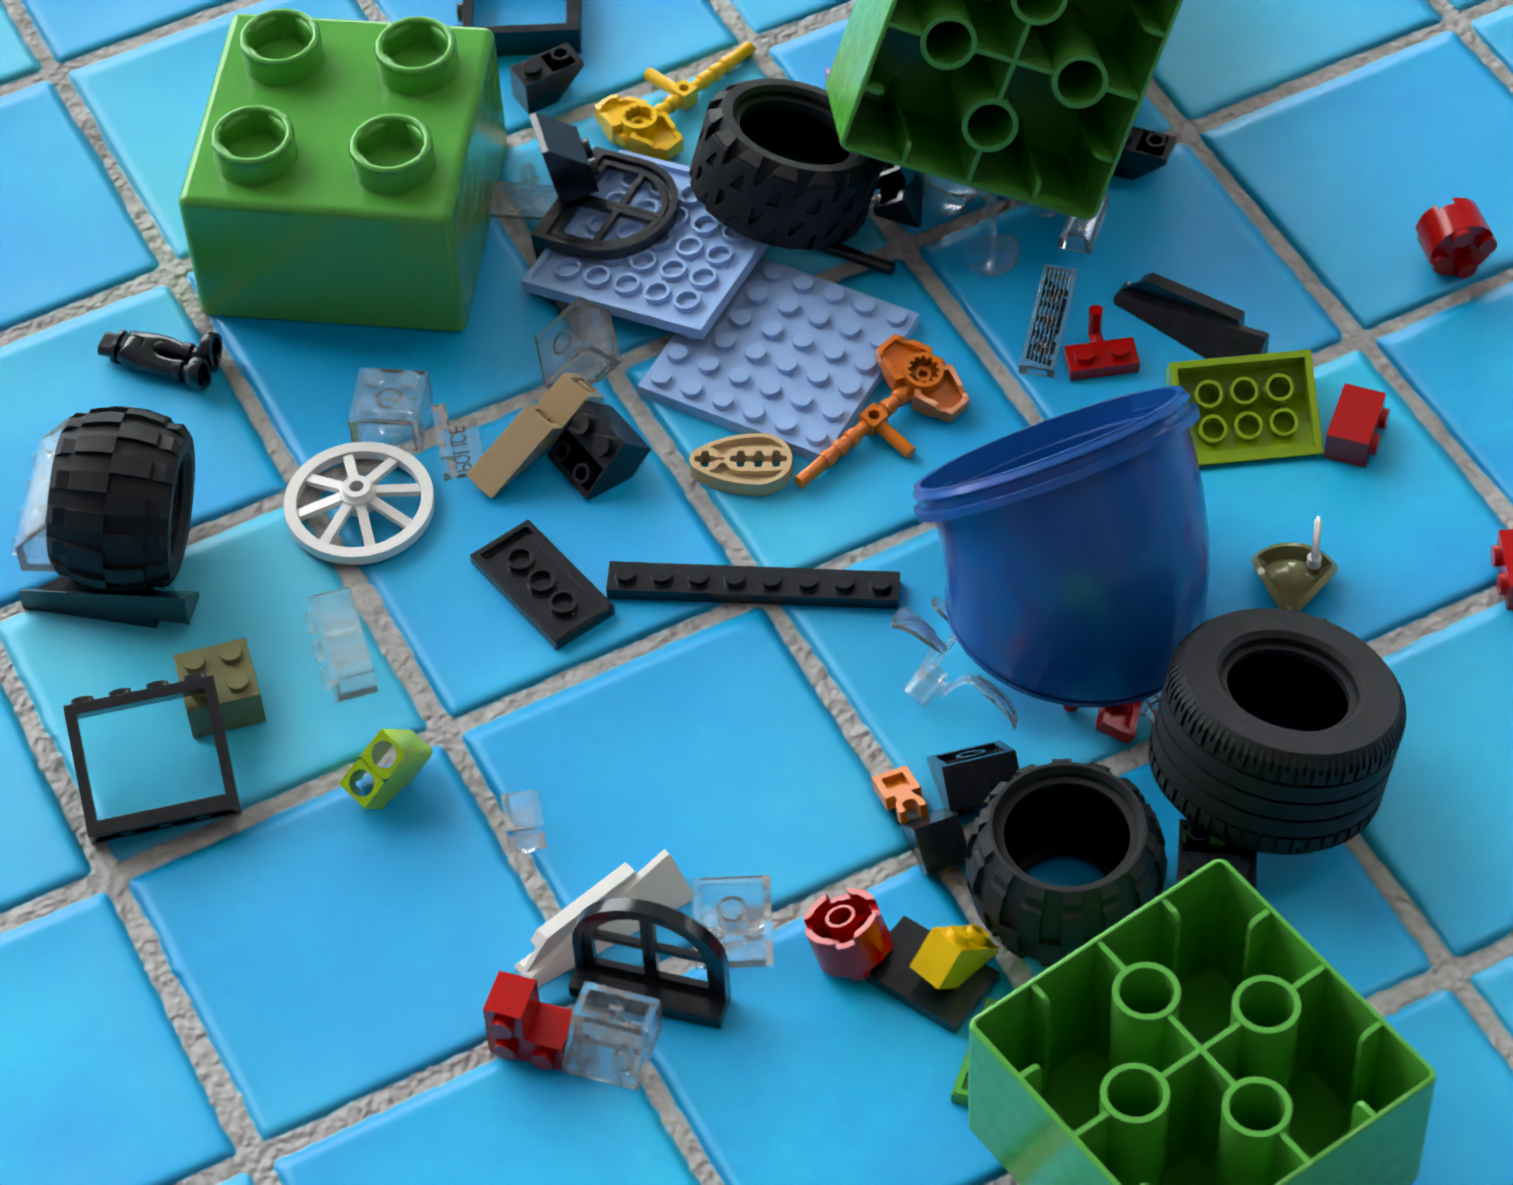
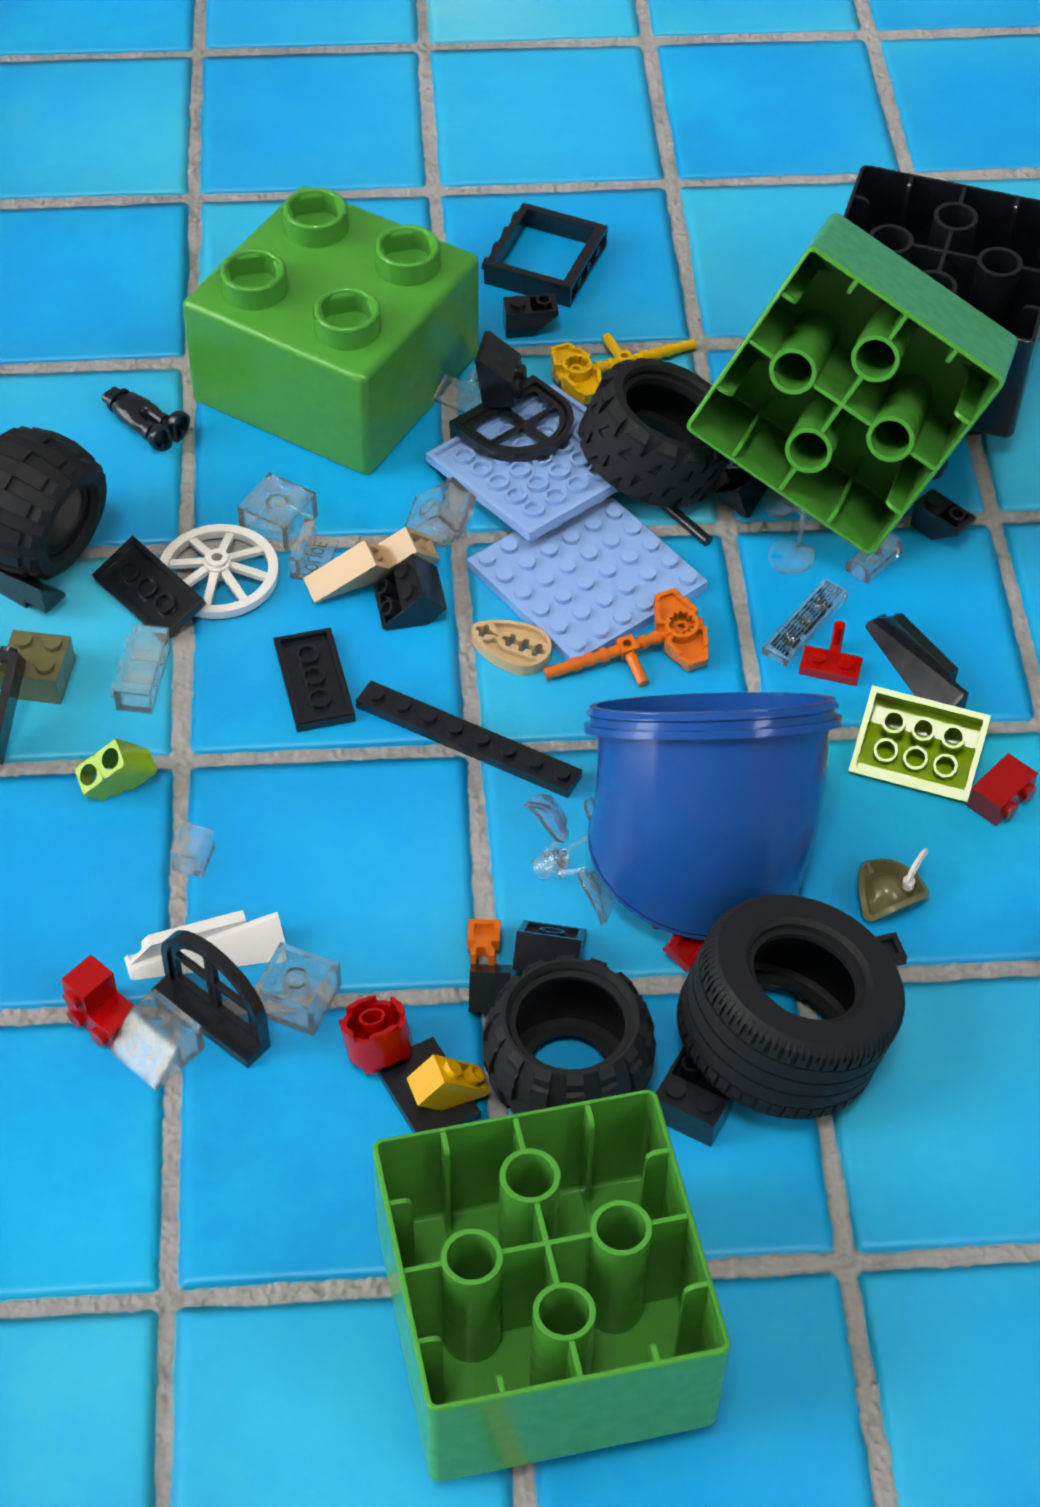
camera: 20 degrees right, 0 degrees up
(291, 550) = (148, 587): none -> black tile

